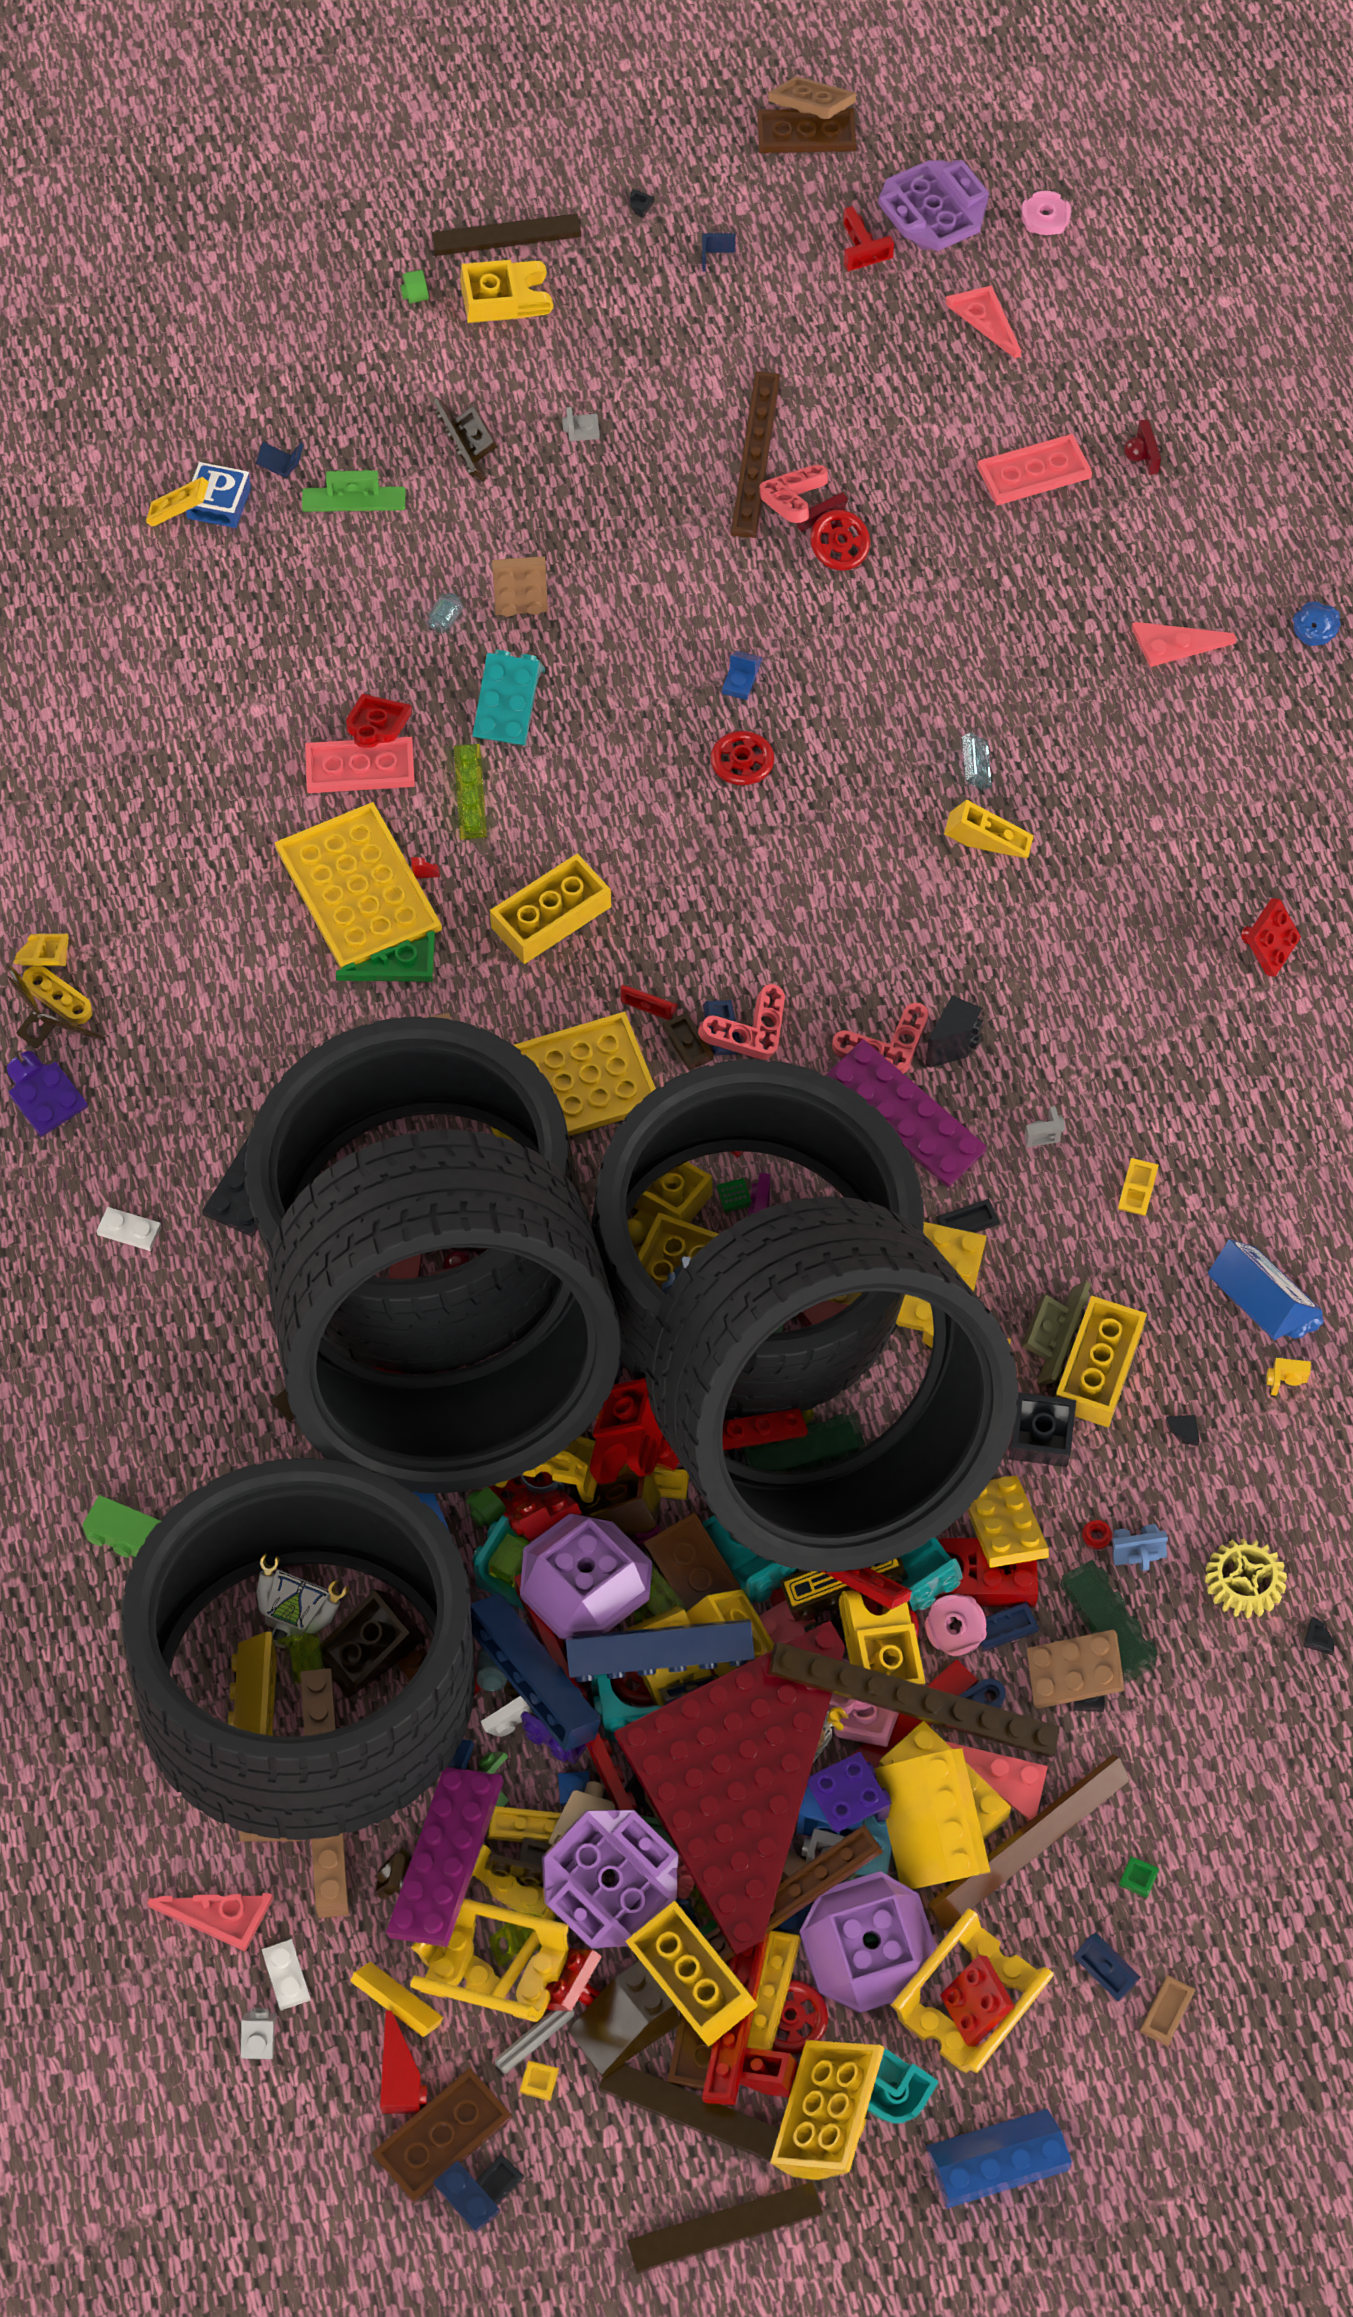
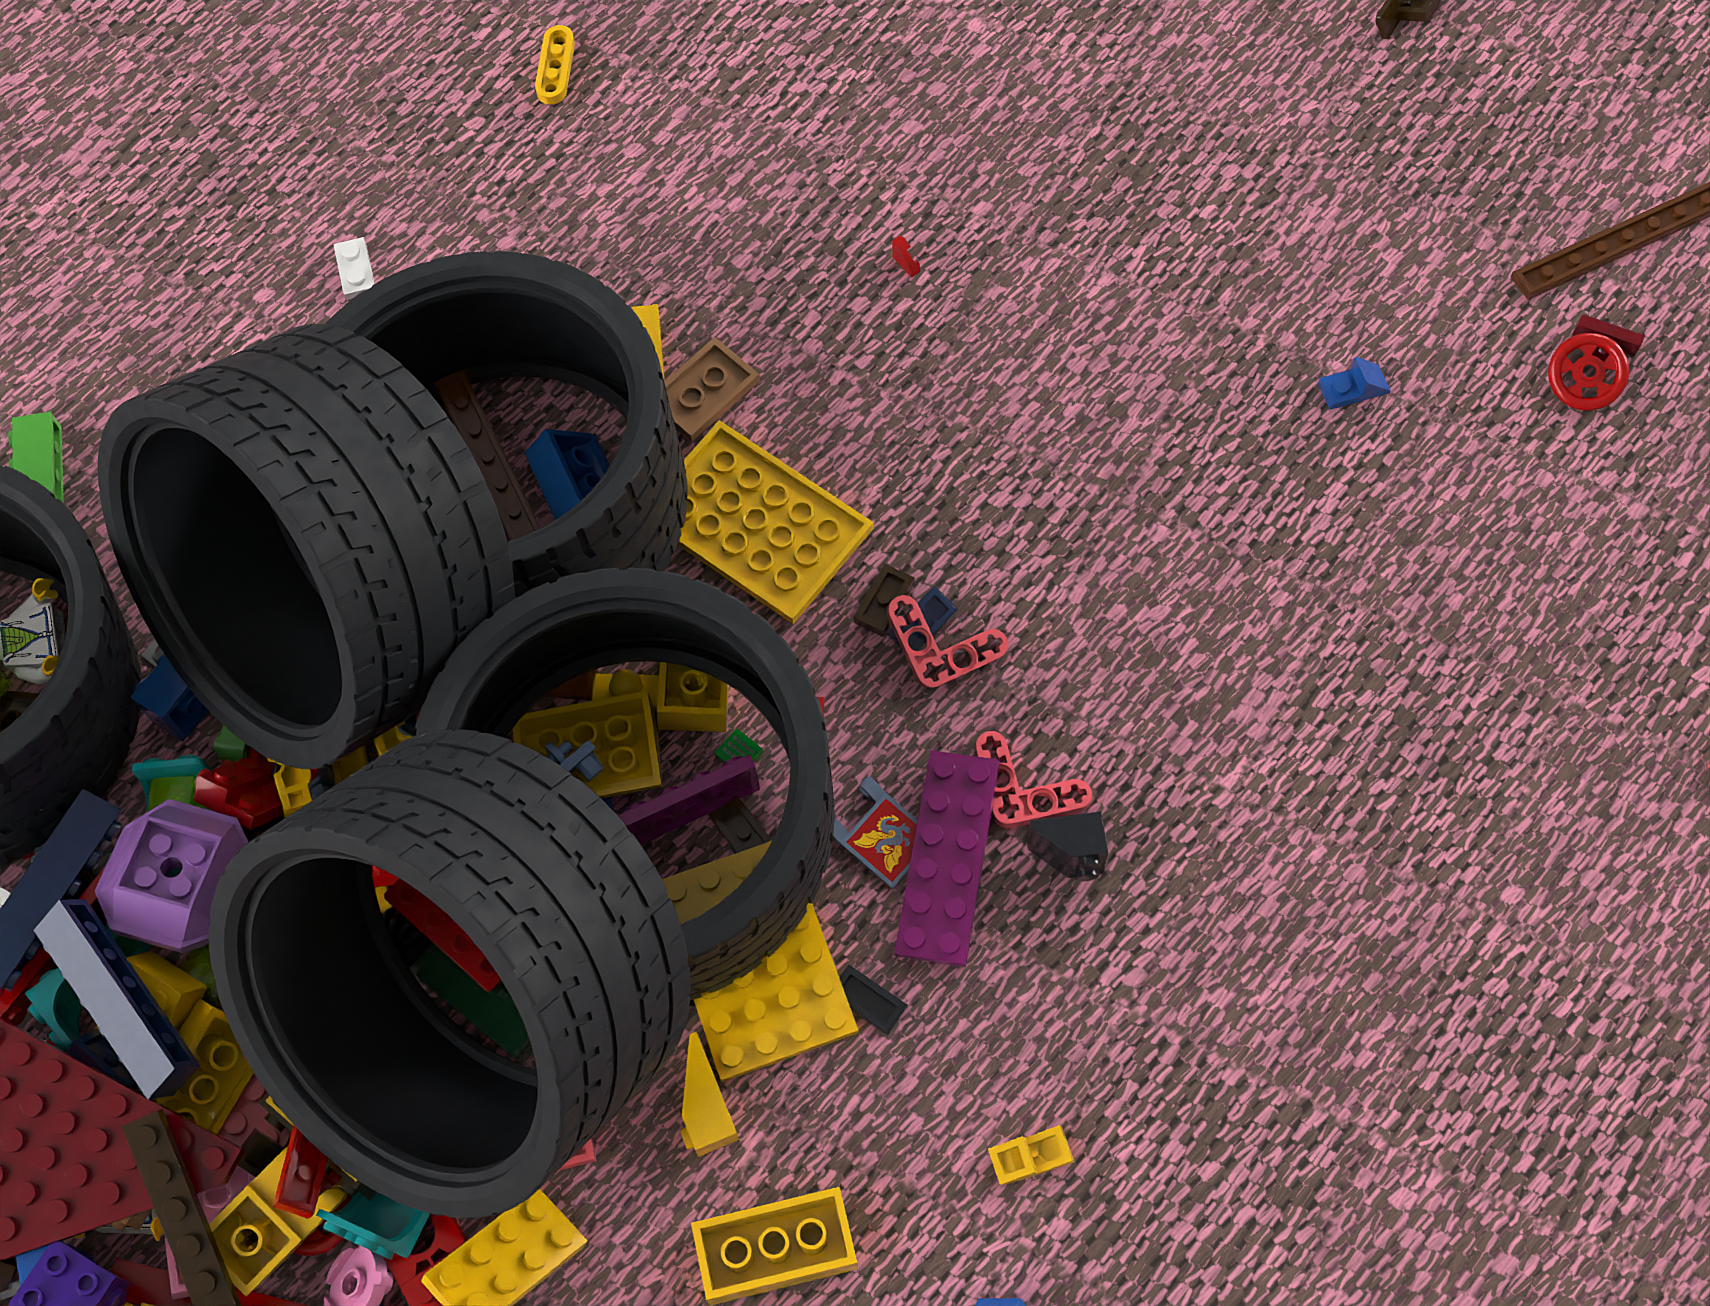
camera: 60 degrees right, 5 degrees up
(35, 1015) = (520, 42): dark brown piece -> none
(43, 950) = (592, 29): yellow slope -> none
(43, 1093) = (446, 117): dark purple plate -> none
(347, 767) = (978, 136): coral plate -> none
(357, 885) = (842, 217): yellow plate -> none
(376, 720) = (1034, 117): red plate -> none
(397, 964) = (790, 306): green wing -> none
(445, 612) = (1203, 97): clear light blue brick -> none
(470, 791) = (1024, 241): clear neon green plate -> none
(507, 697) = (1148, 201): teal bracket -> none
(520, 586) = (1273, 129): medium nougat plate -> none
(550, 908) = (937, 385): yellow brick -> none
(580, 426) = (1515, 73): light grey bracket -> none
(647, 1002) = (906, 536): red slope -> none
(748, 776) = (1254, 422): red plate -> none
(783, 491) = (1598, 281): coral beam -> none
(976, 761) = (1432, 664): clear light blue plate -> none
(986, 831) = (1354, 729): yellow slope -> none
(1043, 1430) = (646, 1234): black slope -> none
(1045, 1132) = (1024, 1011): light grey bracket -> none
(1052, 1330) = (787, 1169): olive bracket -> none
(1272, 937) = (1454, 1109): red plate -> none

